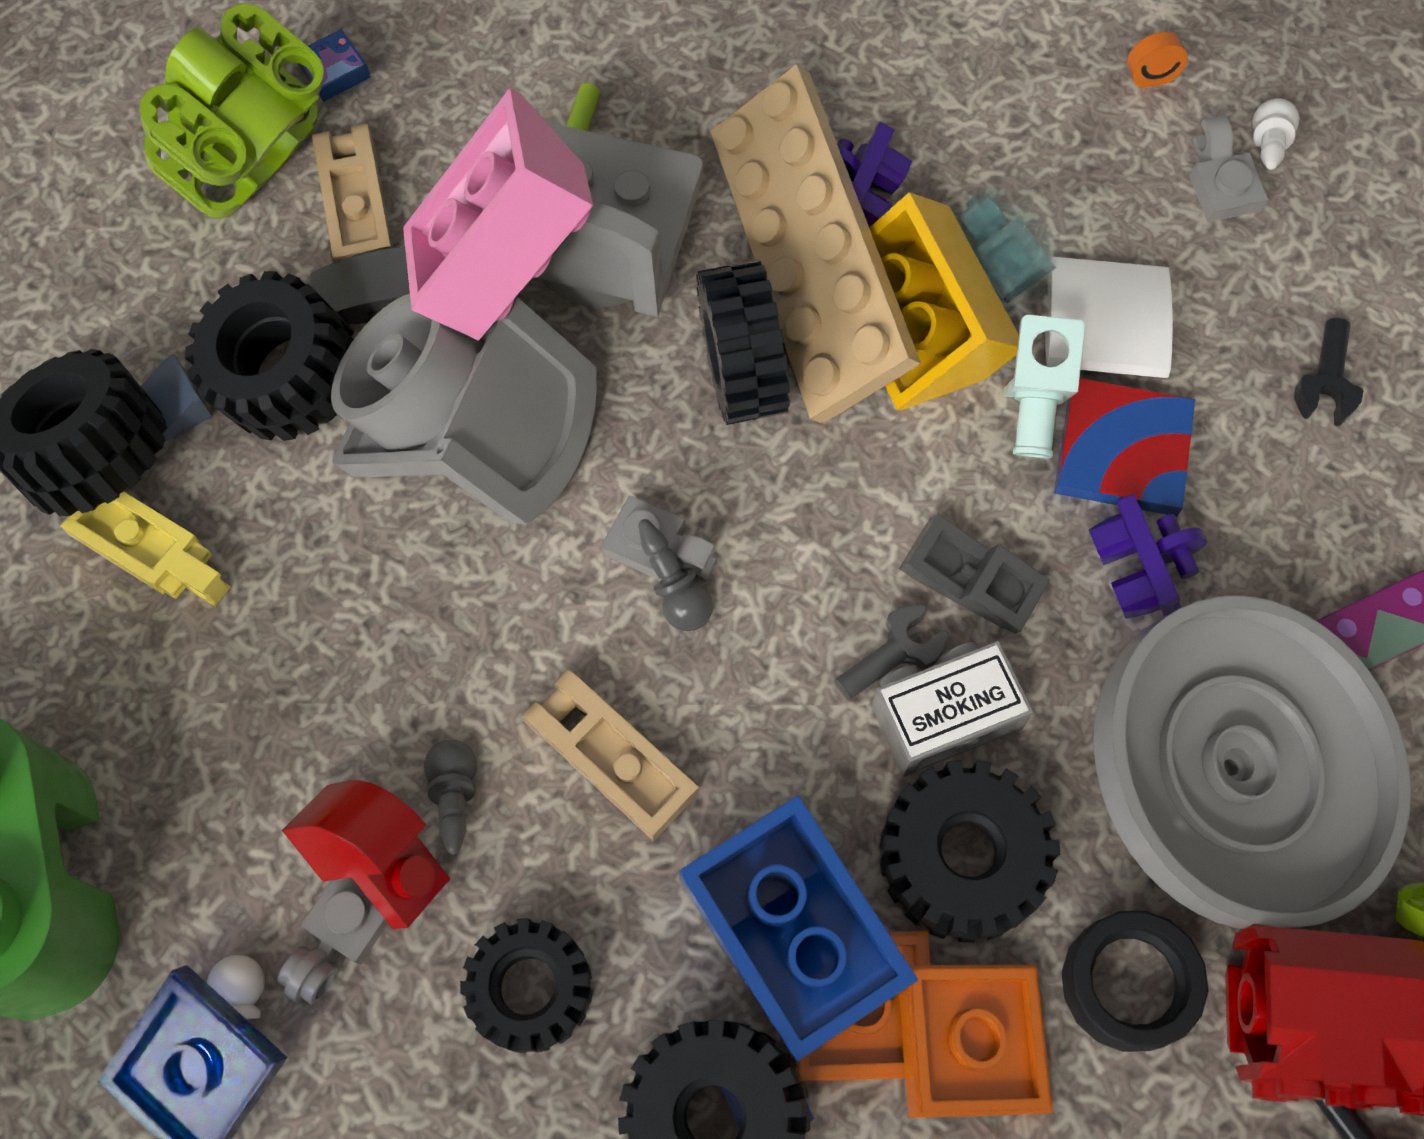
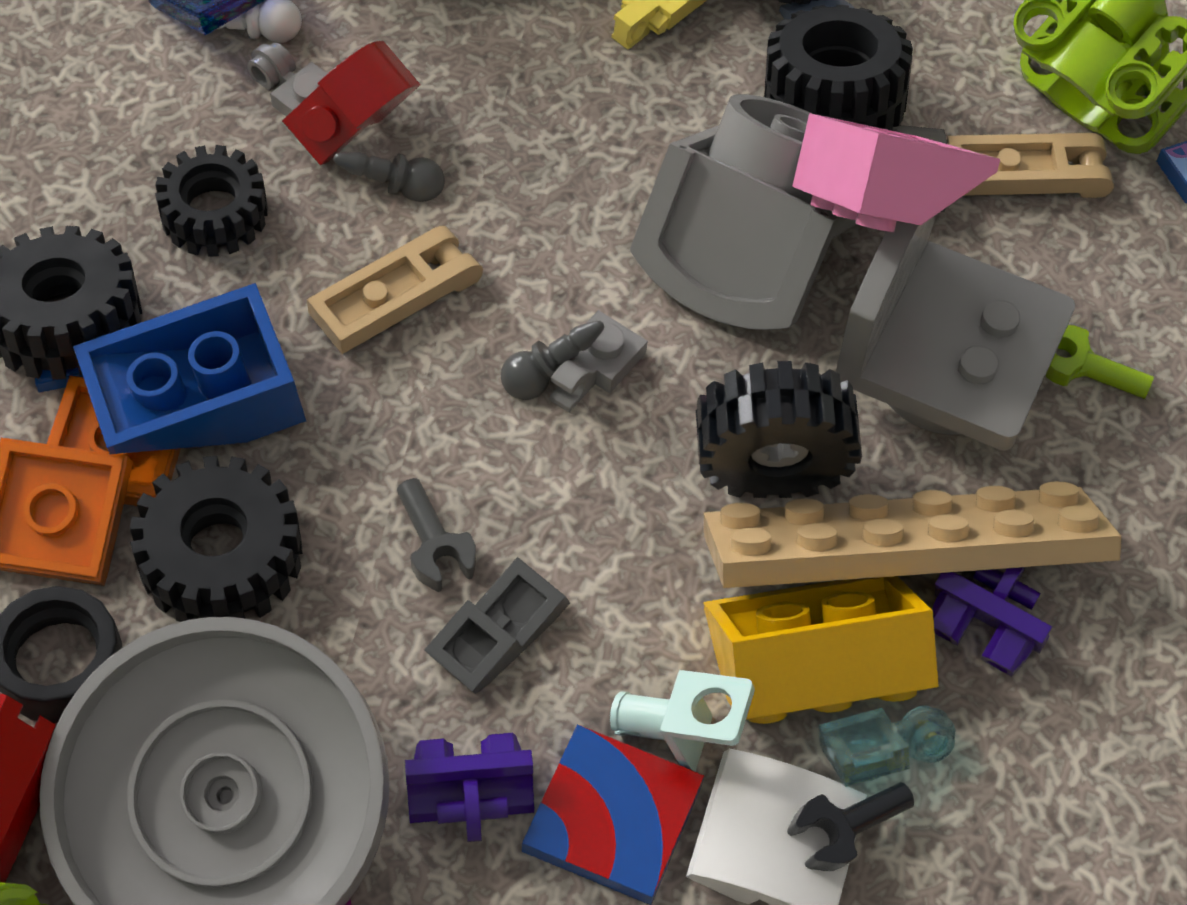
camera: 95 degrees right, 10 degrees down
(950, 706) = (358, 559): brick -> none
(1098, 266) = (846, 823): none -> black bar

